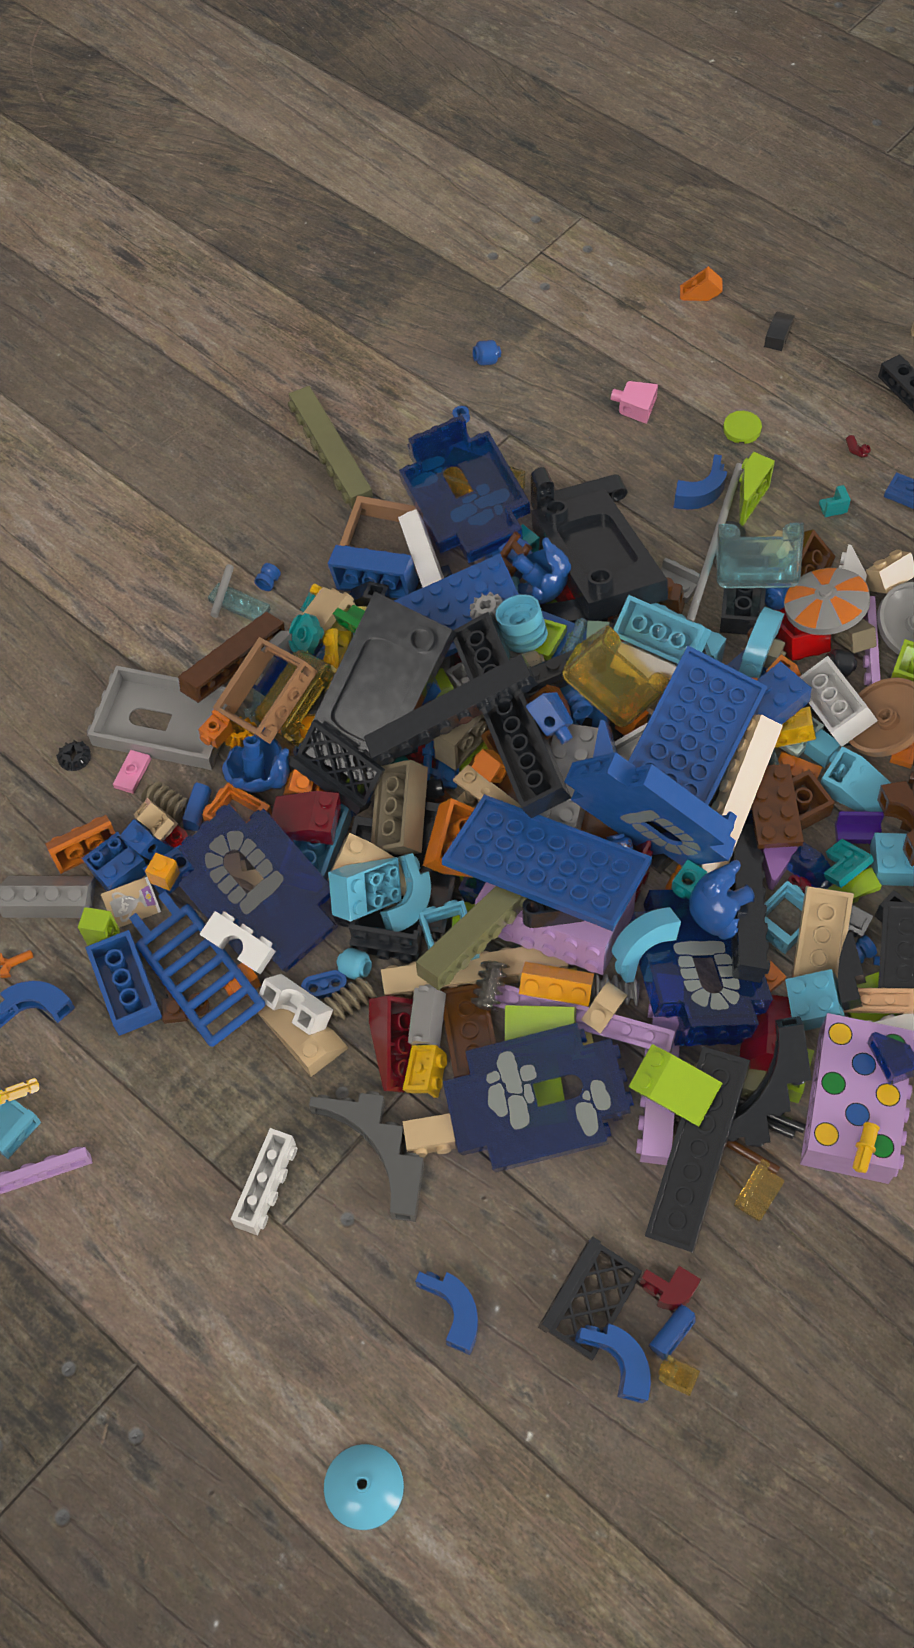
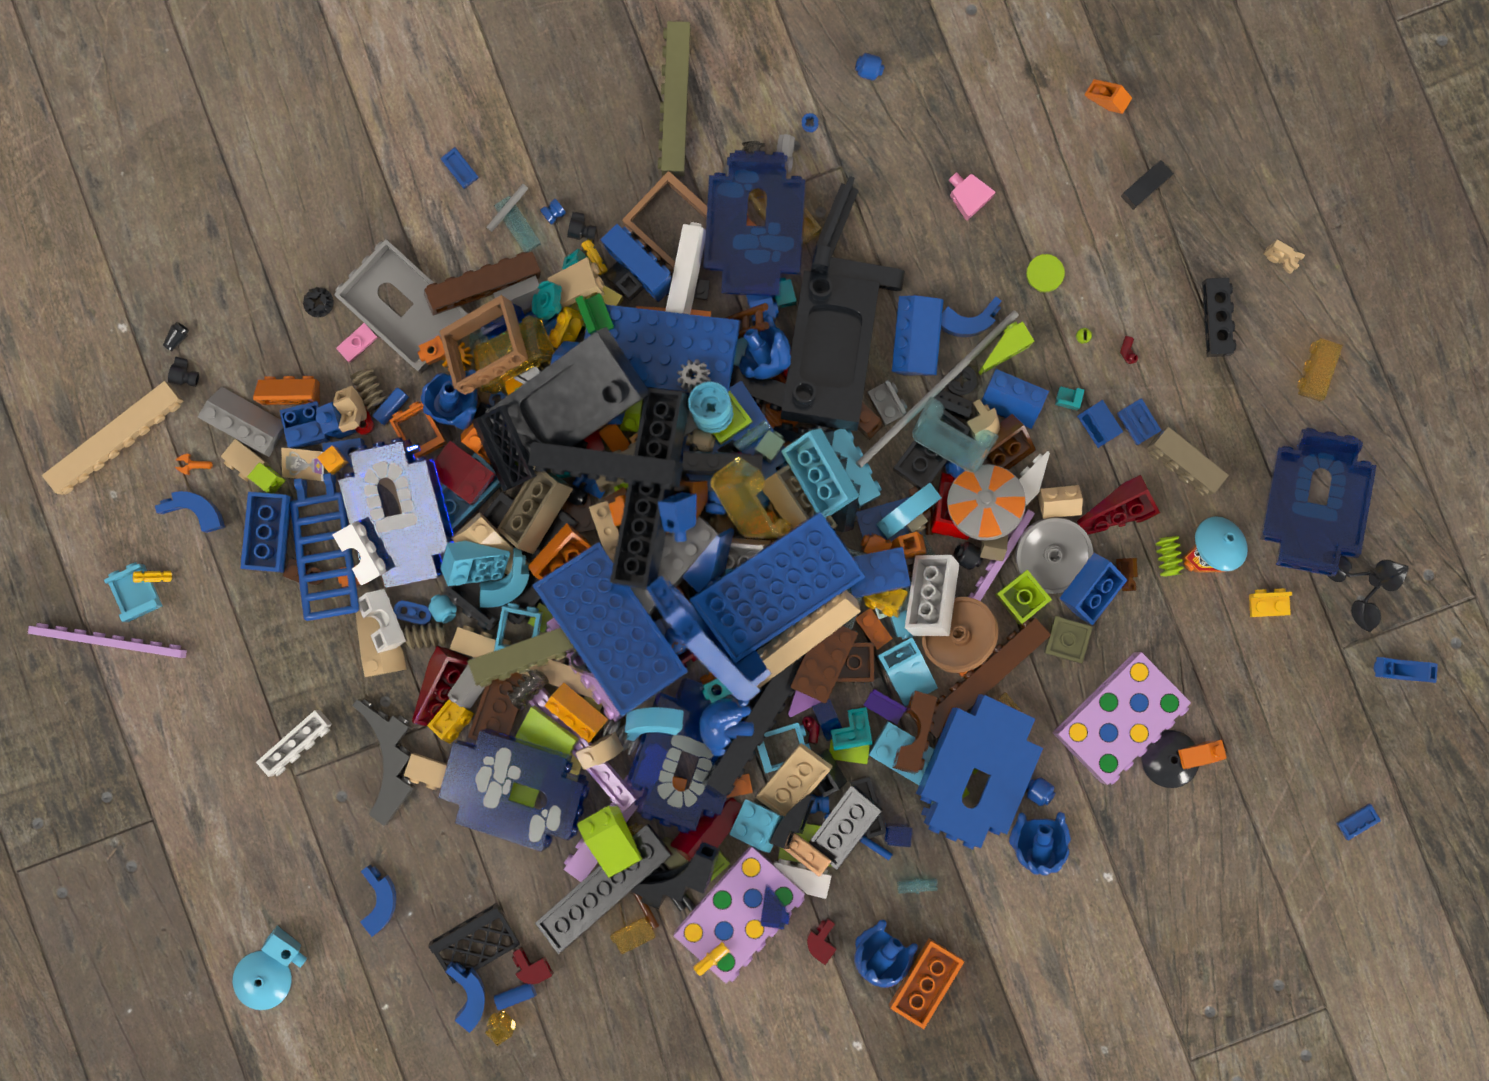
camera: 25 degrees right, 25 degrees up
(61, 929) = (241, 458): none -> tan brick
(157, 587) = (459, 168): none -> blue tile
(299, 580) = (578, 229): none -> black piece
(360, 1424) = (280, 941): none -> medium azure torso
(529, 454) = (838, 215): none -> black fence
(667, 513) = (917, 335): none -> blue slope
(775, 515) = (1015, 397): none -> blue slope
(808, 453) = (1080, 335): none -> lime hinge
(876, 509) = (1100, 423): none -> blue brick

